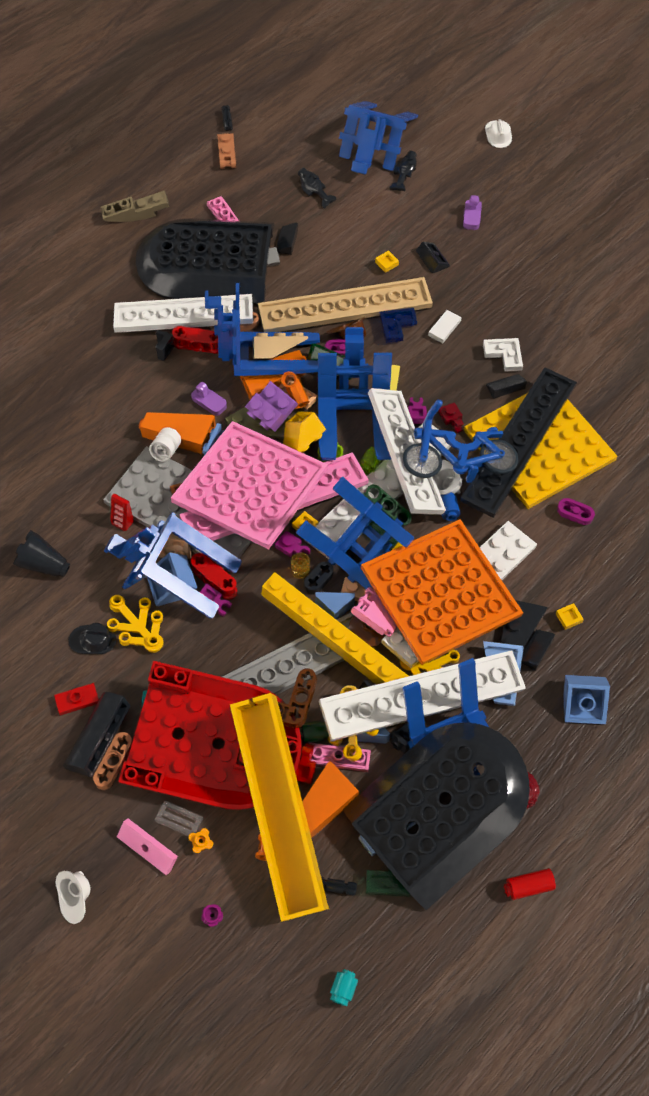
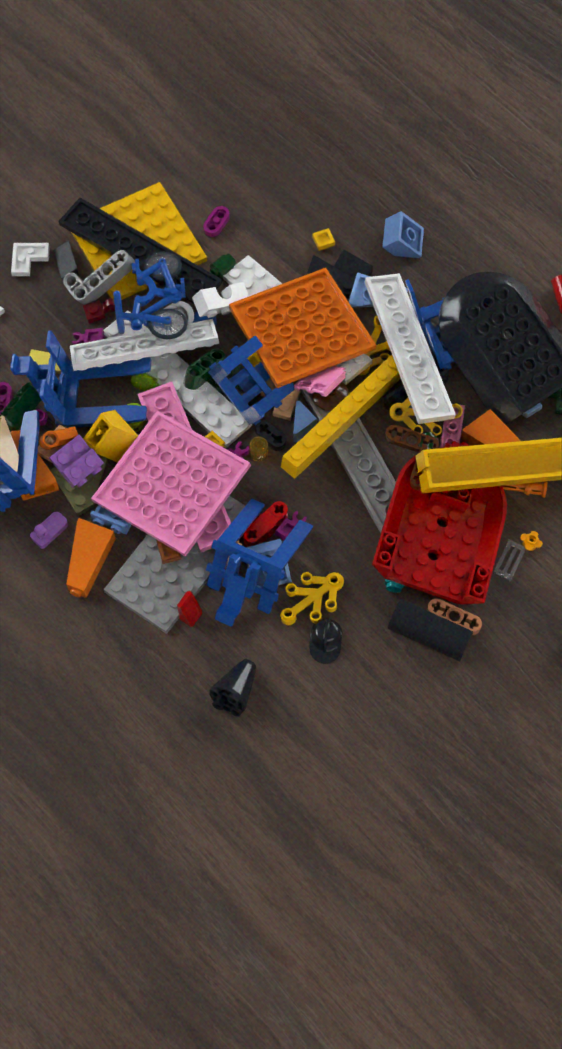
camera: 85 degrees left, 5 degrees up
(76, 699) = (390, 651): red plate -> none
(147, 846) = (538, 584): bright pink tile -> none
(165, 444) = (111, 564): white wheel -> none
(457, 502) = (210, 303): none -> white arch
(473, 403) = (101, 275): none -> light grey beam
(518, 519) = (222, 265): none -> dark green brick

